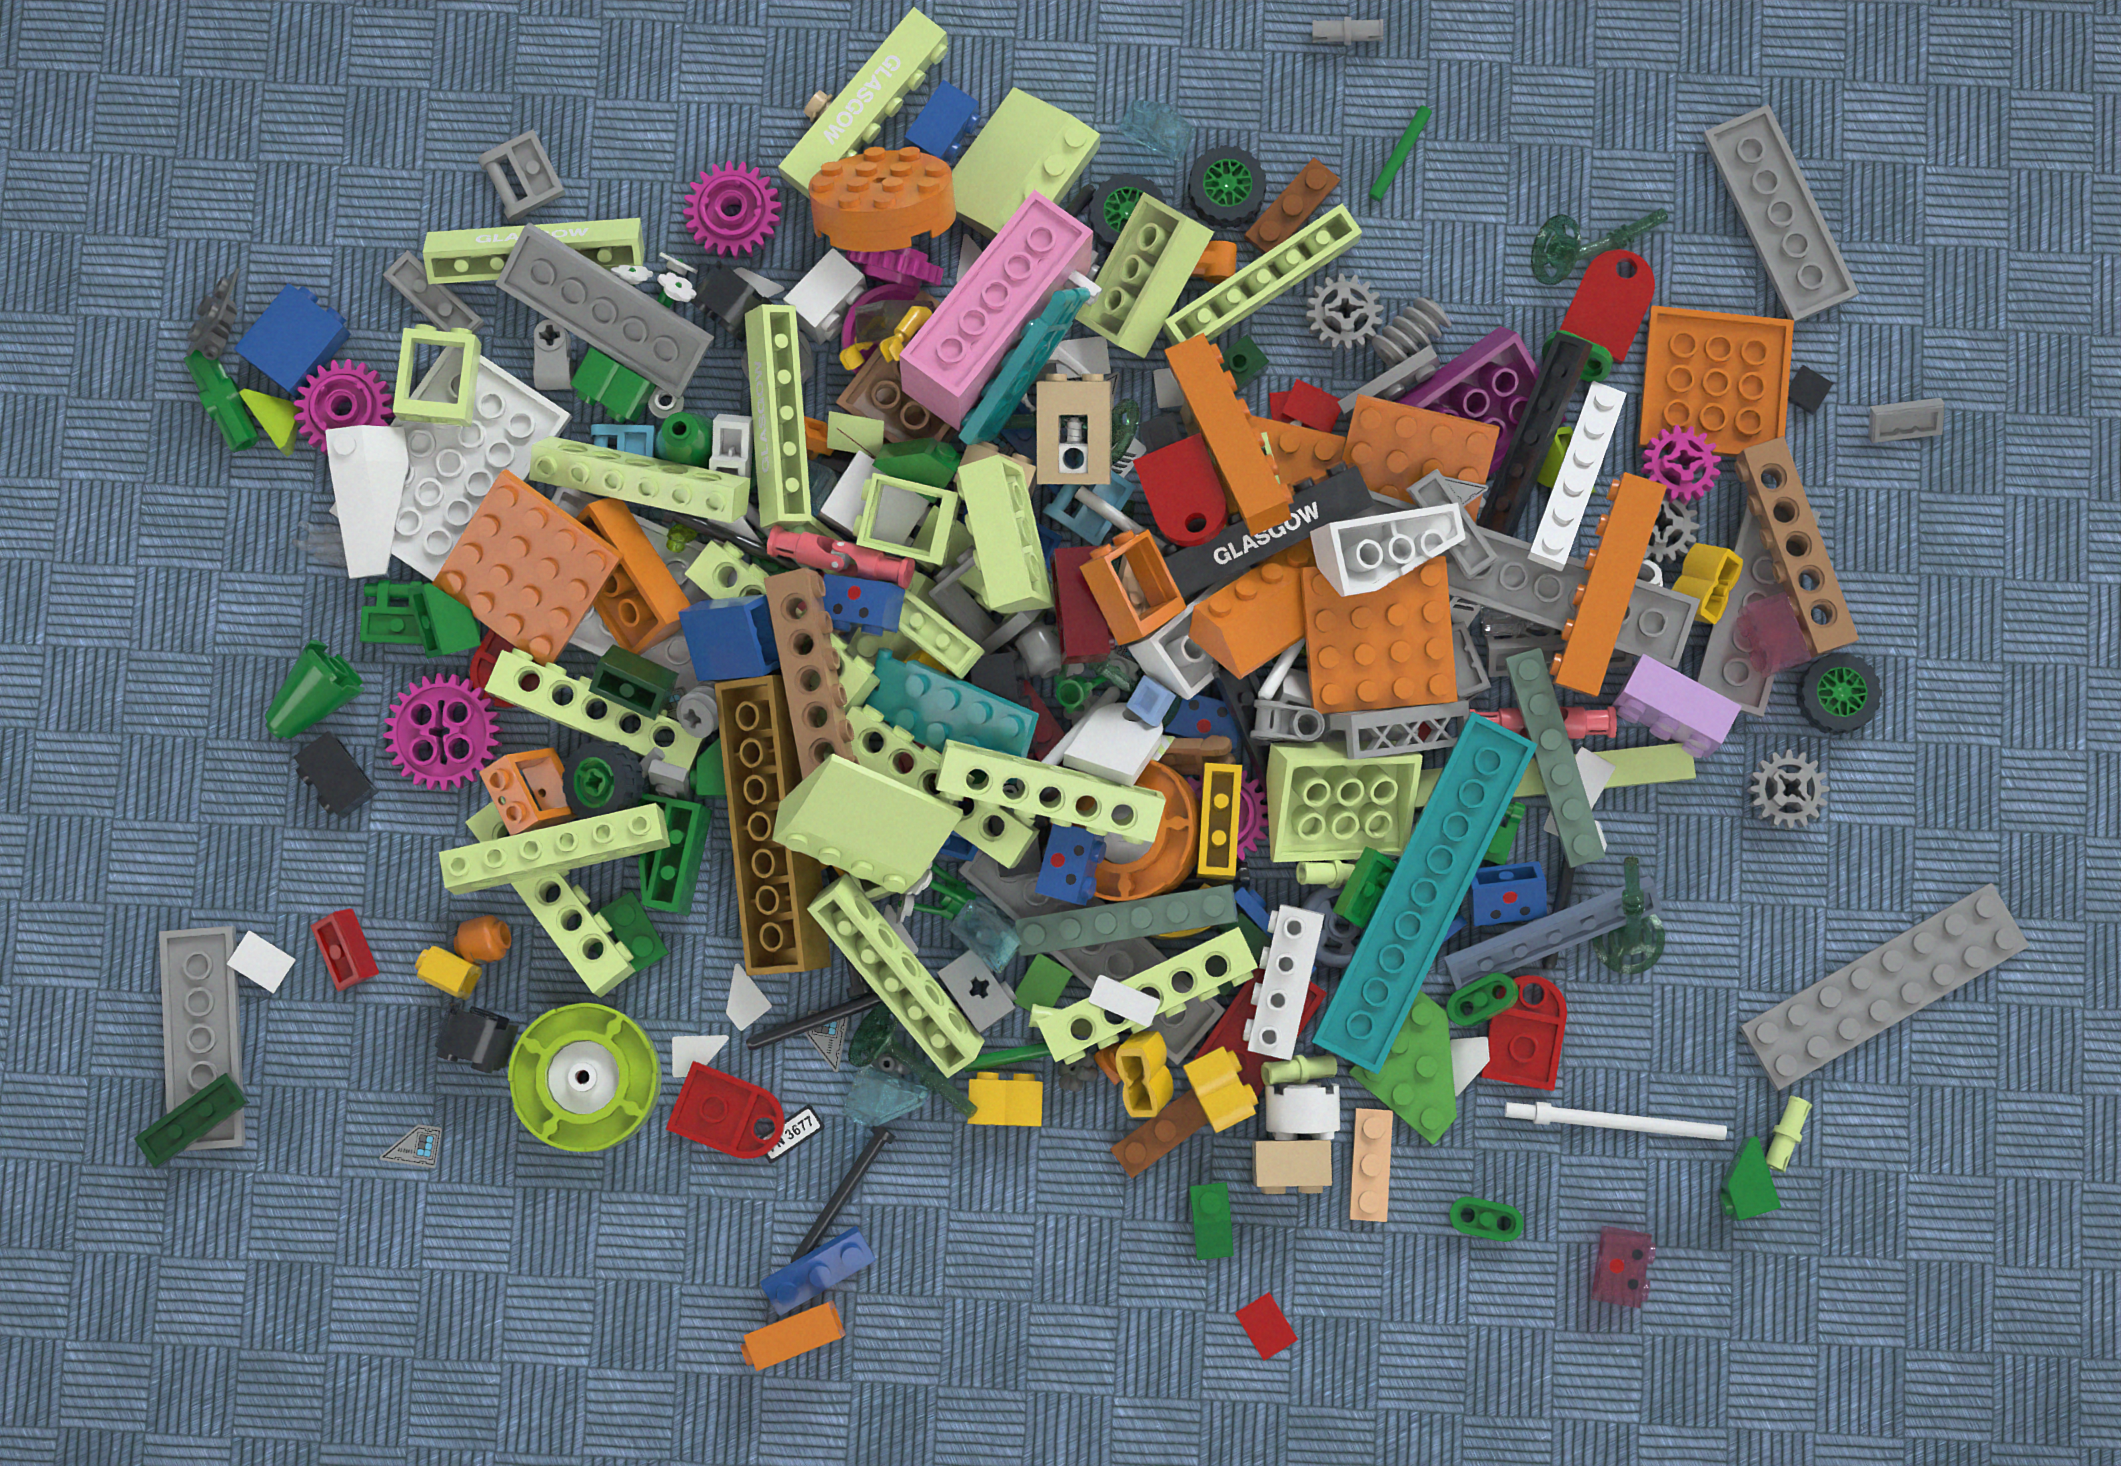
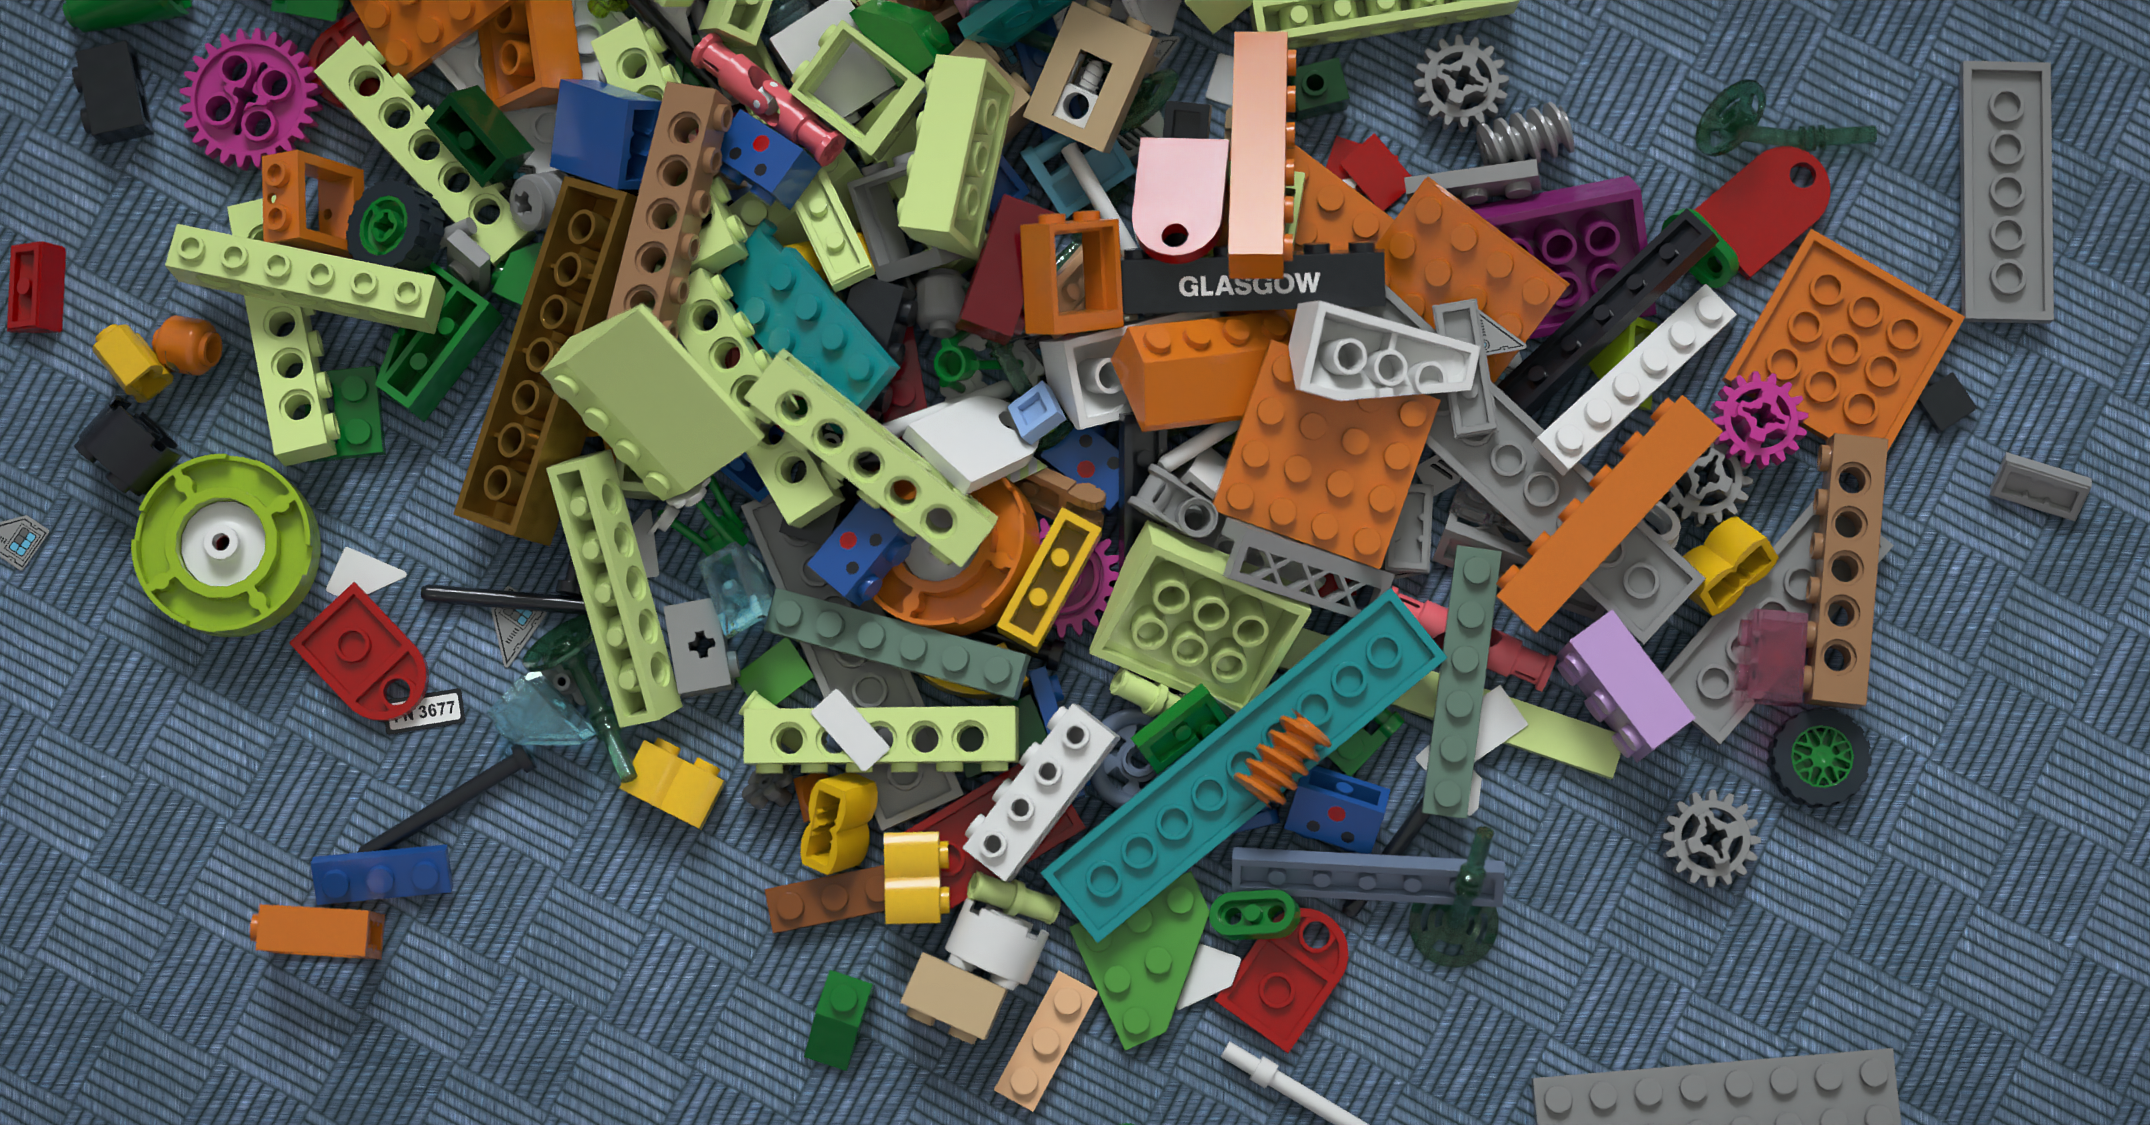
camera: 25 degrees right, 0 degrees up
(745, 1000) = (443, 543): white sticker -> none
(1009, 1056) = (696, 735): green bar -> none
(1454, 875) = (1282, 759): none -> orange piece

